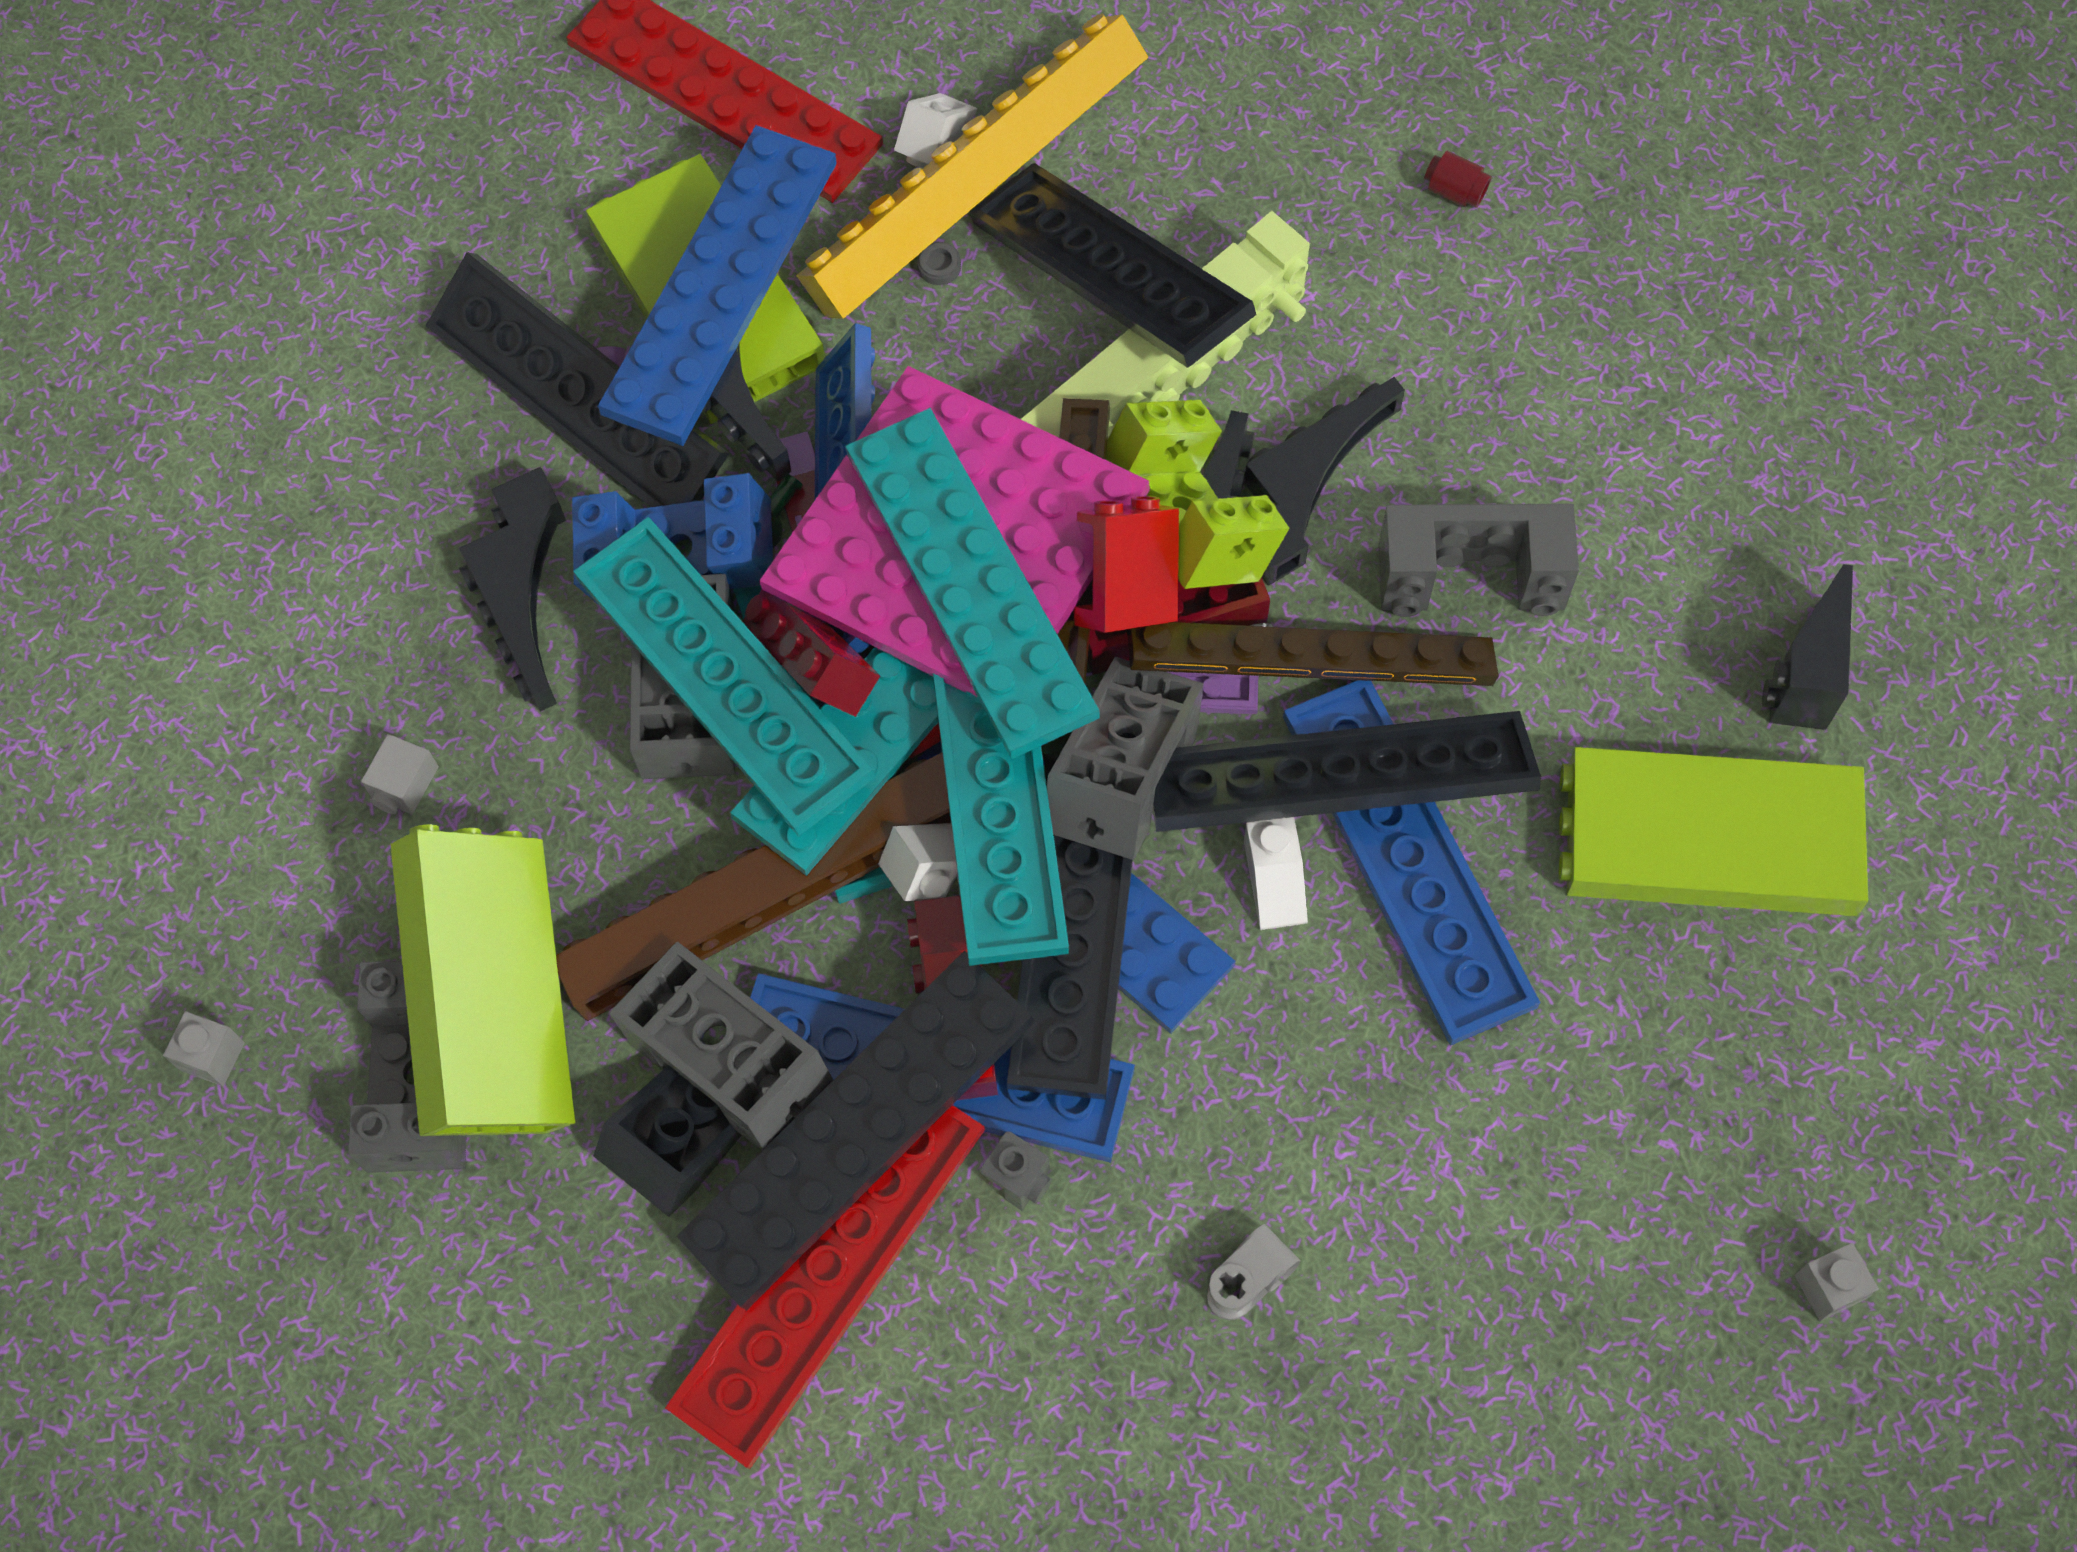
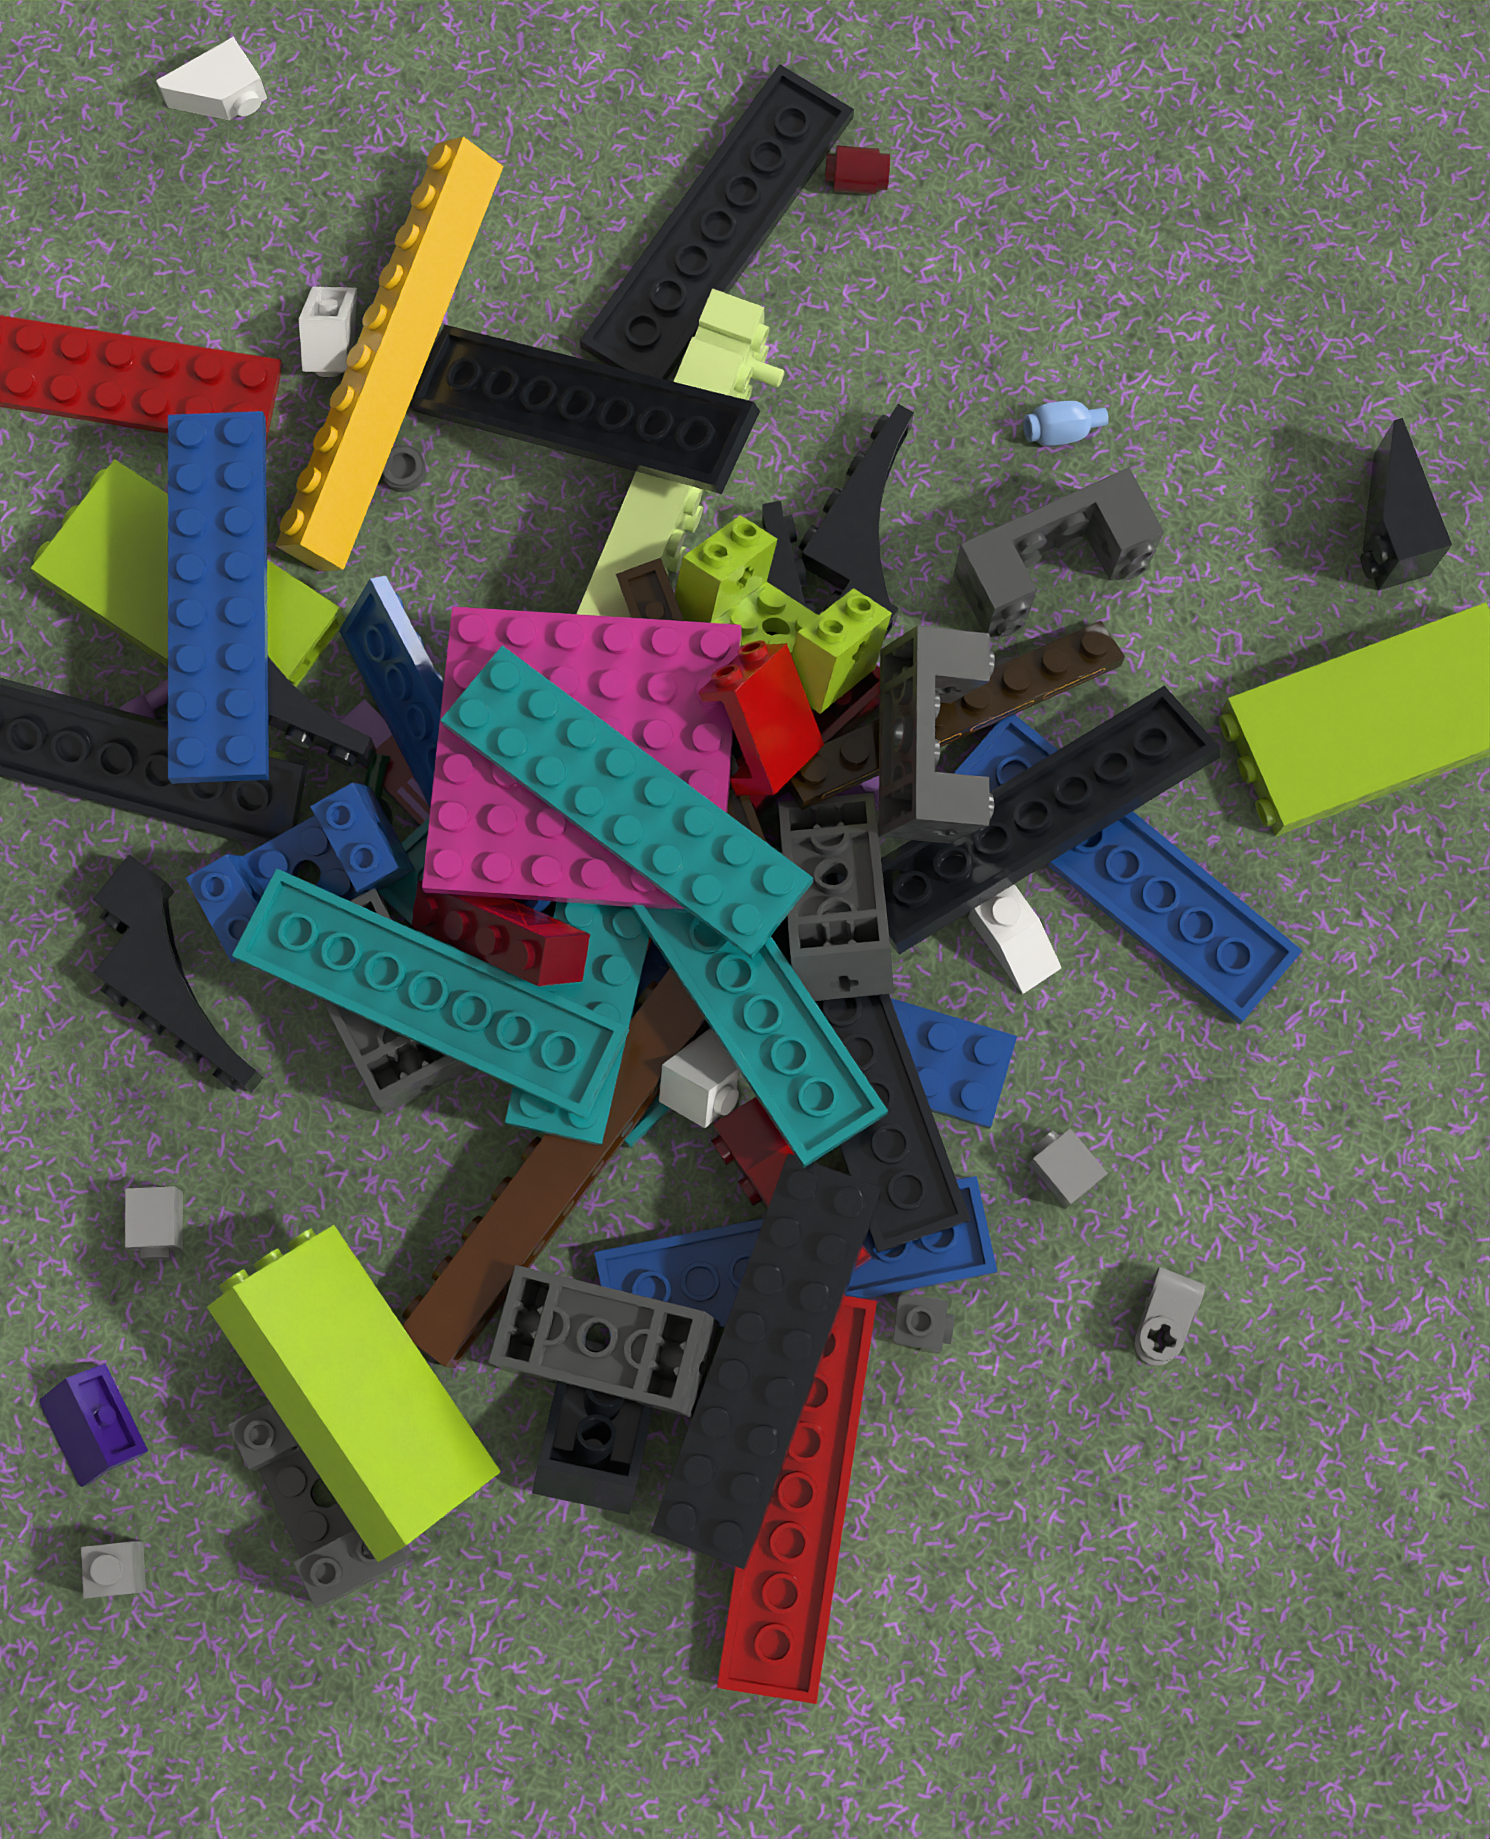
camera: 30 degrees left, 10 degrees up
(257, 921) = (92, 1424): none -> dark purple panel
(1222, 1095) = (1066, 1166): none -> light grey brick
(1296, 589) = (915, 677): none -> dark grey plate
(1319, 170) = (718, 225): none -> black plate
(1540, 457) = (1062, 423): none -> light blue plant

